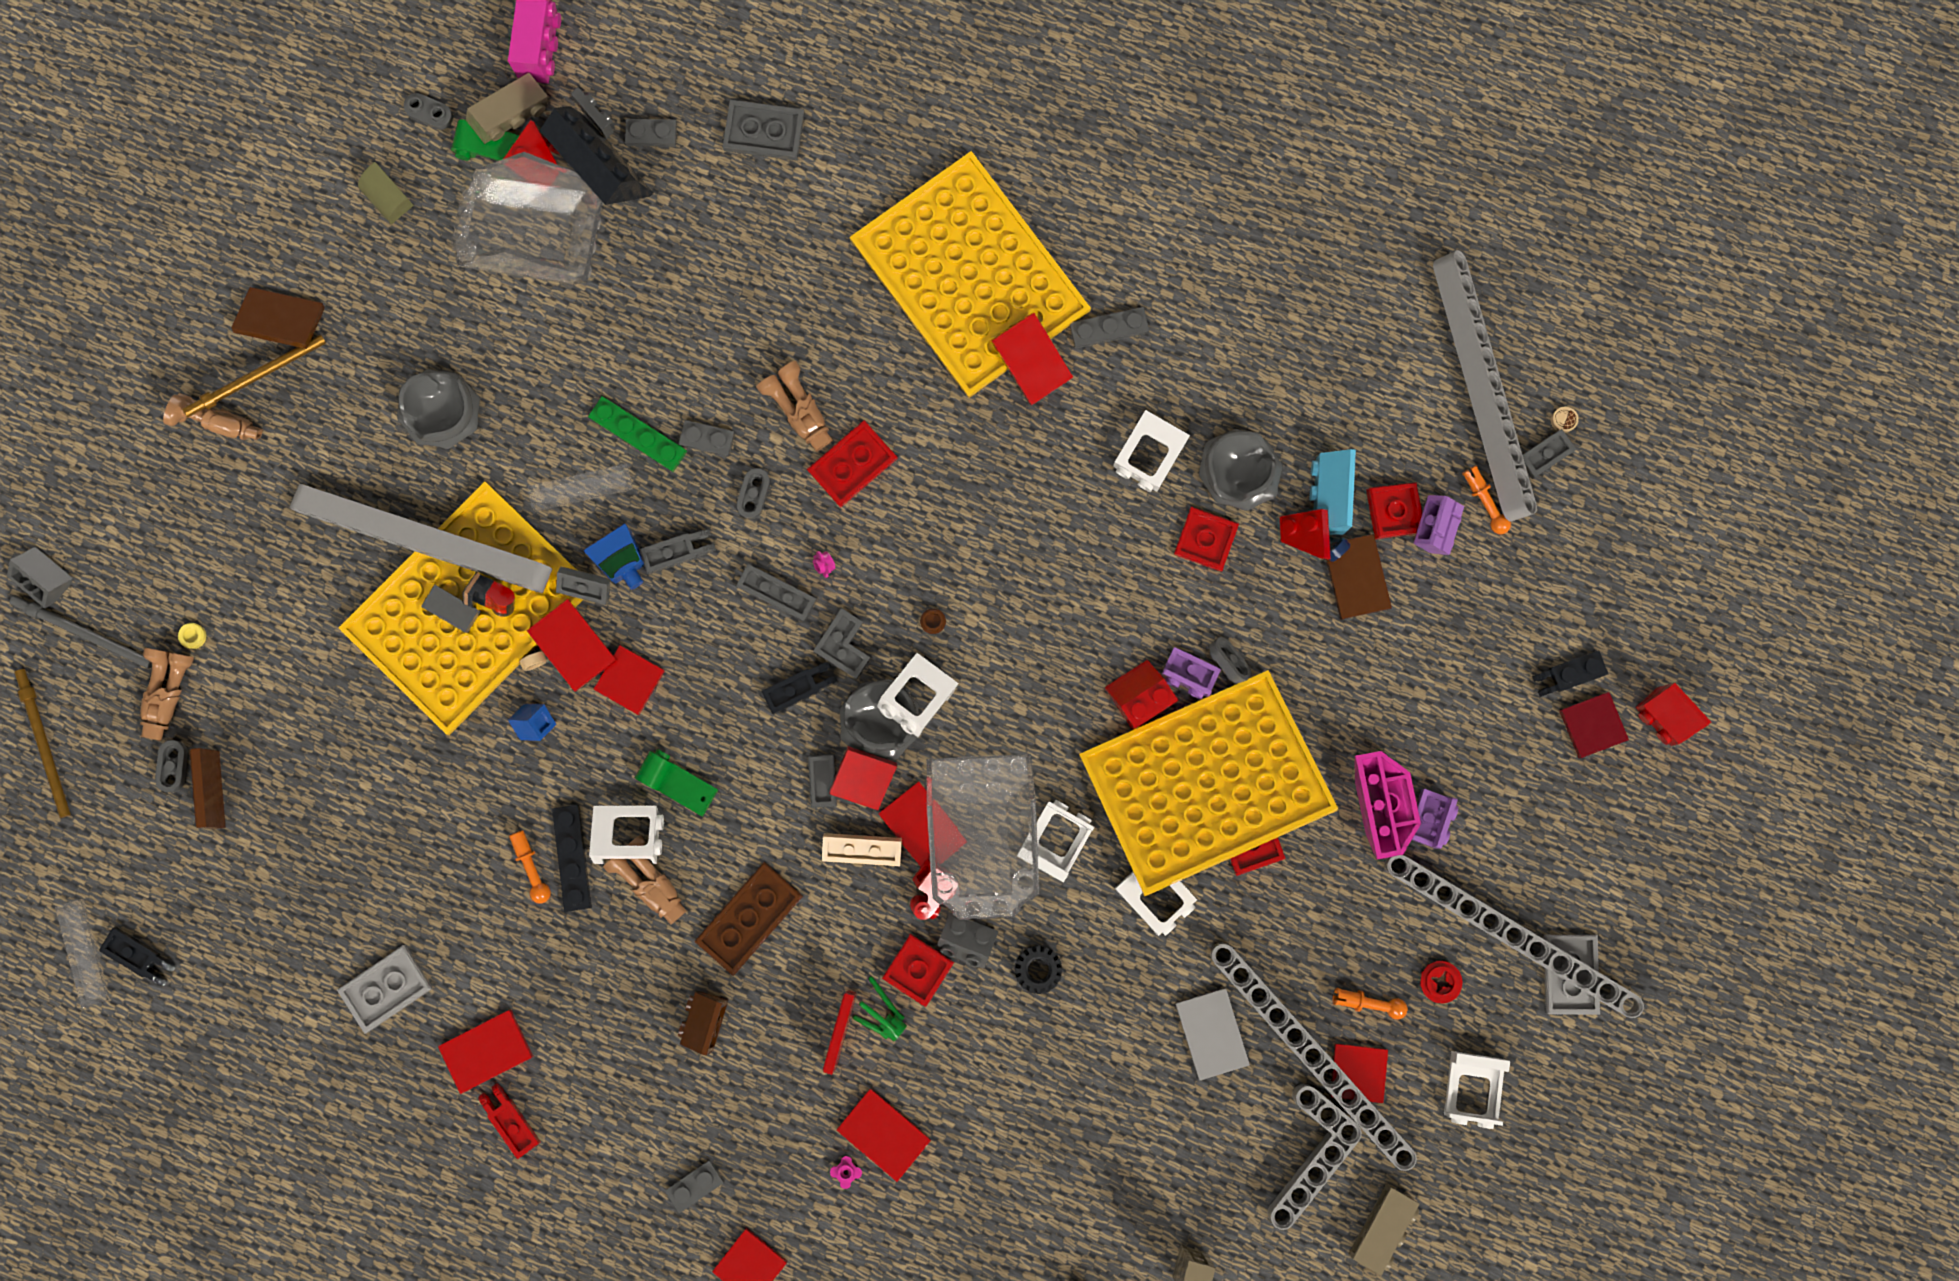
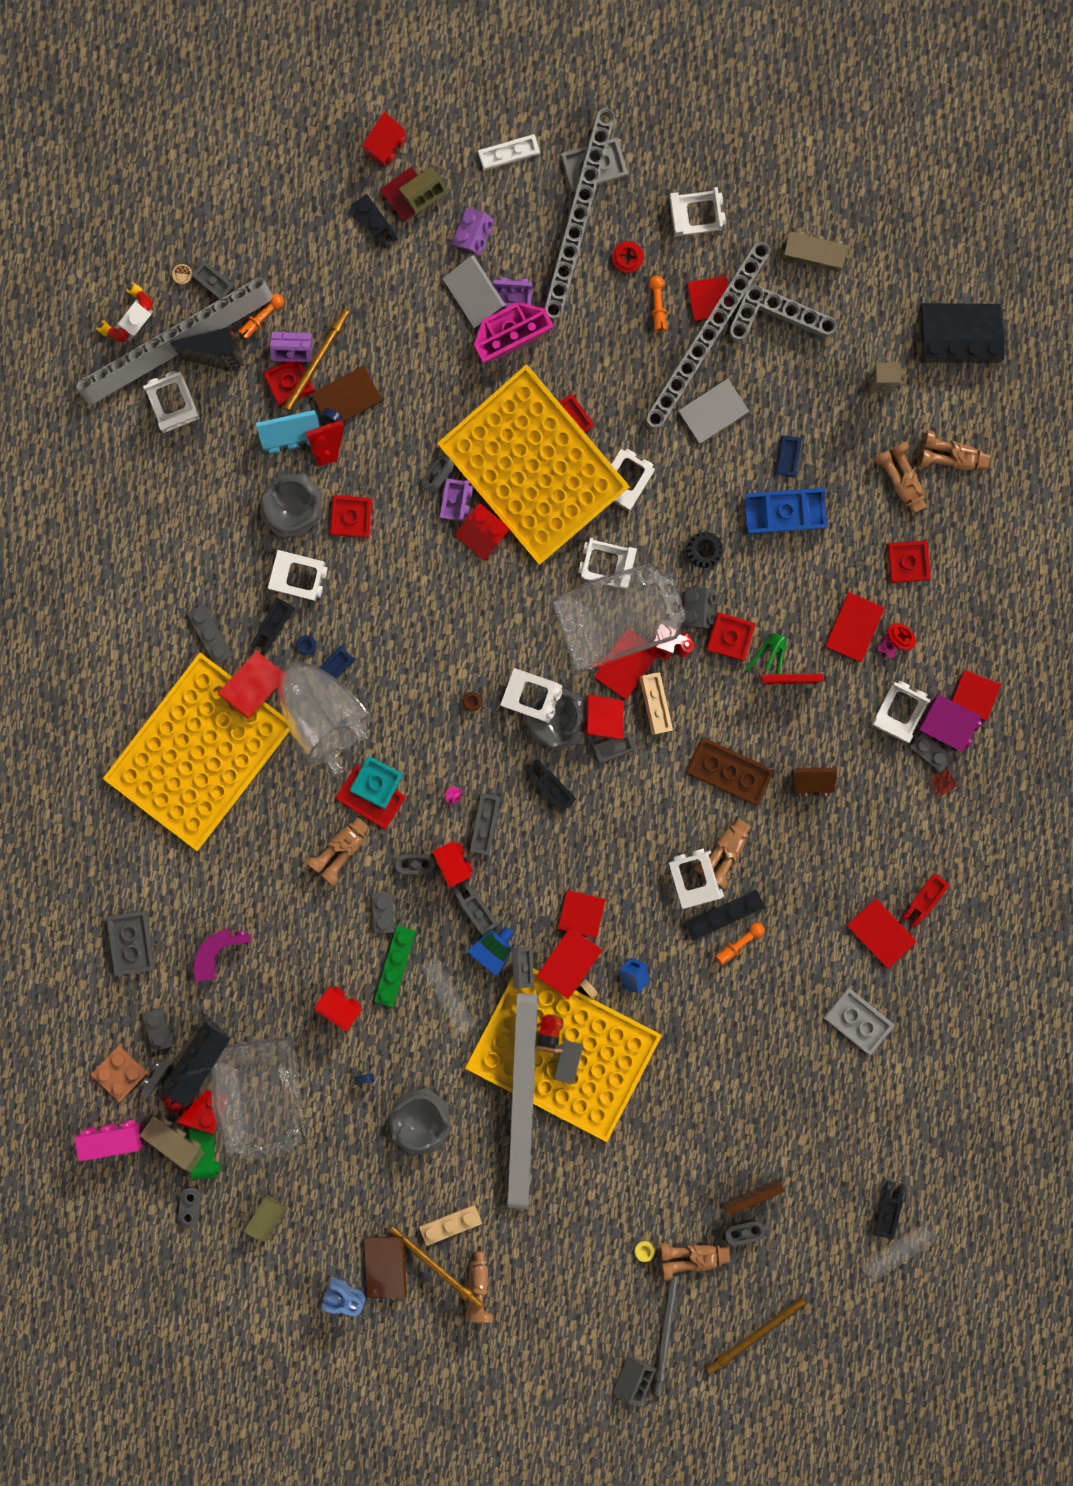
camera: 105 degrees left, 5 degrees up
(258, 251) = (339, 1298): none -> medium blue piece
(303, 411) = (450, 1225): none -> tan plate
(511, 357) = (364, 1079): none -> dark blue tile
(605, 349) = (339, 1008): none -> red slope
(613, 74) = (119, 1073): none -> nougat plate
(651, 1191) = (944, 782): none -> clear red tile
(675, 782) = (647, 855): green door -> none
(716, 211) = (206, 956): none -> magenta arch
(723, 1222) = (950, 723): none -> magenta brick
(738, 537) = (452, 863): none -> red slope
(741, 1146) = (893, 727): none -> white window
(836, 645) = (510, 768): dark grey plate -> none
(857, 1197) = (904, 633): none -> red gear
(867, 474) = (376, 782): none -> teal tile
(947, 1231) = (909, 561): none -> red tile
(970, 427) = (321, 714): none -> clear windscreen
(1026, 465) = (337, 662): none -> dark blue tile
(1044, 1259) = (908, 485): none -> medium nougat piece
(1057, 1089) = (785, 511): none -> blue piece
(1062, 439) = (306, 645): none -> dark blue tile
(1100, 406) = (273, 624): none -> black hinge
(1127, 1114) = (788, 456): none -> dark blue tile
(1386, 364) = (180, 417): none -> white window
(1447, 587) = (335, 328): none -> pearl gold bar
(1449, 772) = (473, 291): none -> light grey tile
(1464, 424) = (212, 348): none -> black slope
(1525, 794) = (473, 231): none -> medium lavender bracket
(1526, 342) = (132, 320): none -> torso
(1595, 746) = (424, 190): none -> olive brick
(1615, 869) = (508, 152): none -> white tile

